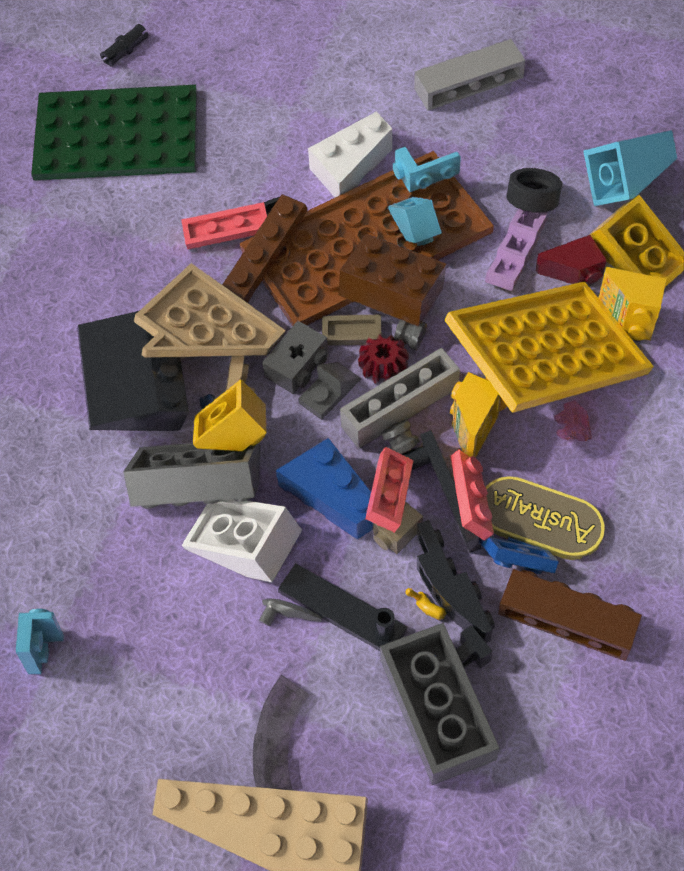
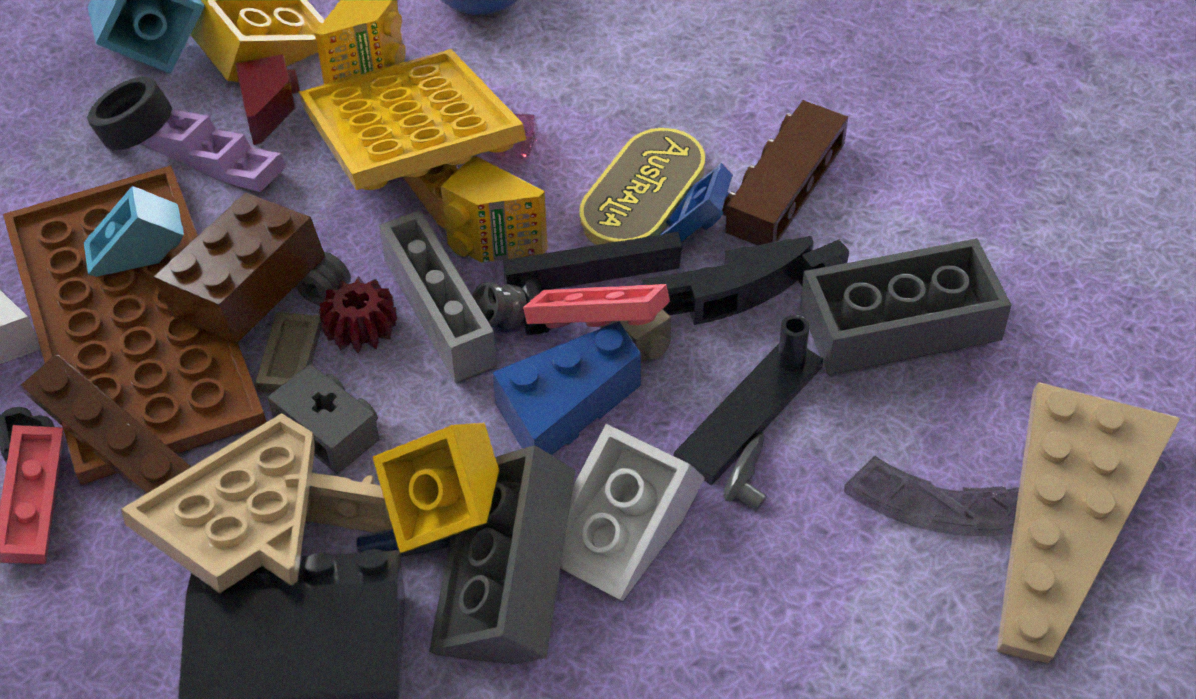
camera: 85 degrees left, 10 degrees down
(329, 389) = (389, 390): dark grey slope -> none
(422, 176) = (43, 230): medium azure bracket -> none
(426, 605) = (755, 317): yellow piece -> none
(471, 495) = (609, 230): coral plate -> none

